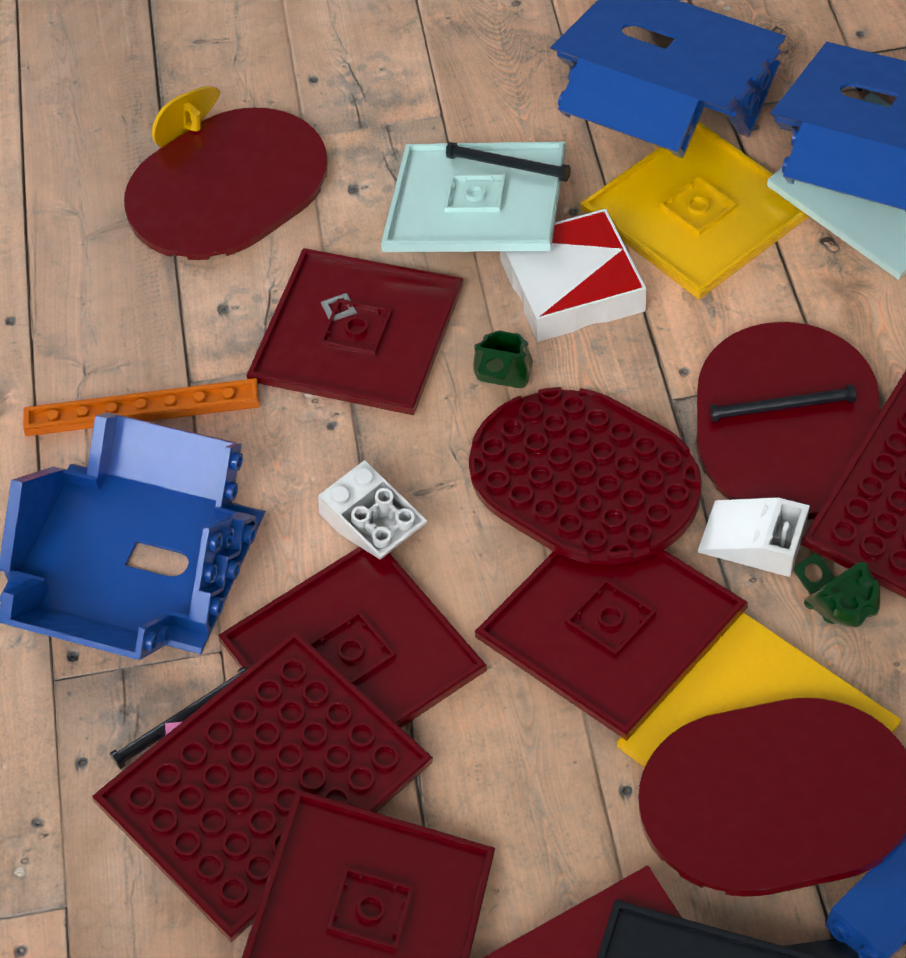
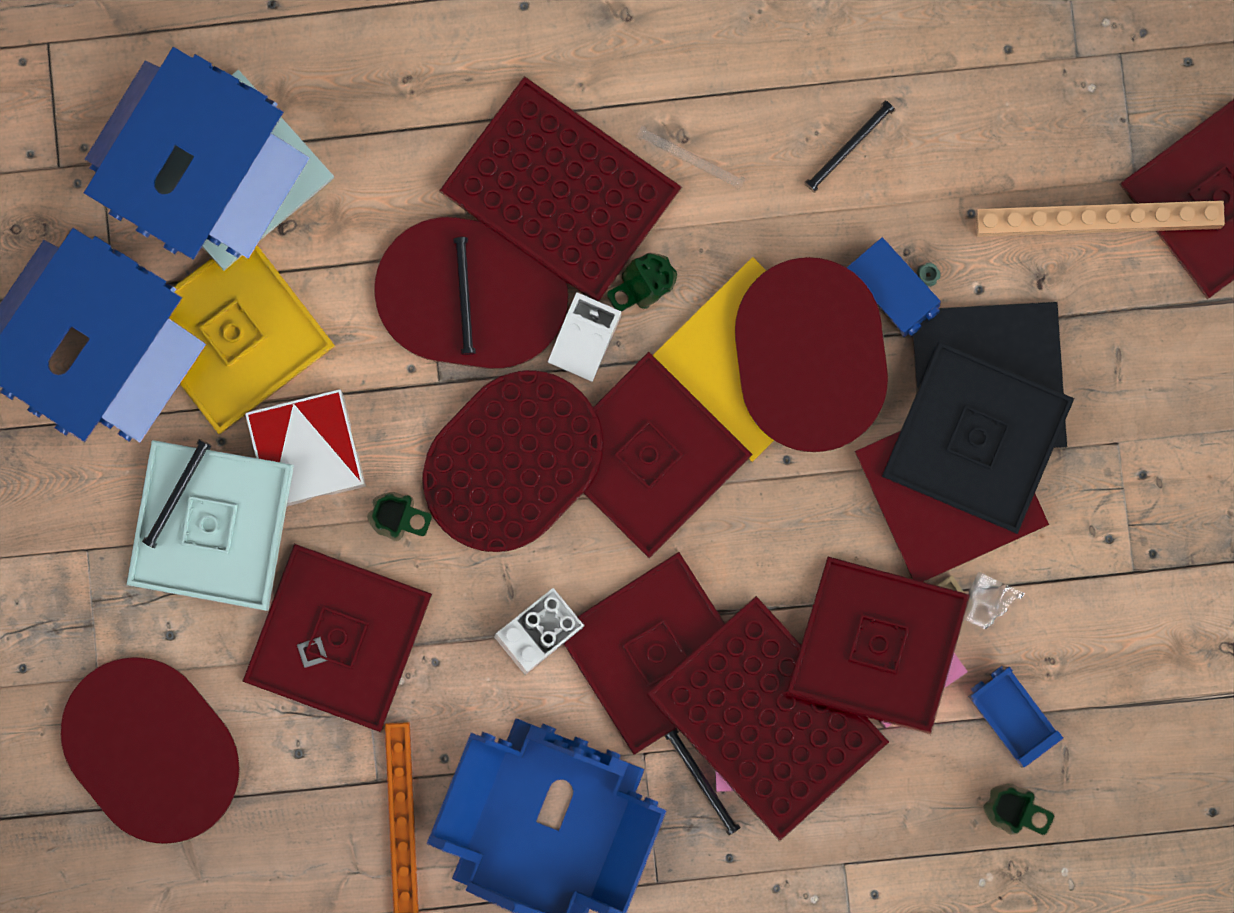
camera: 90 degrees left, 30 degrees up
(183, 114) = (73, 785): yellow shield -> none

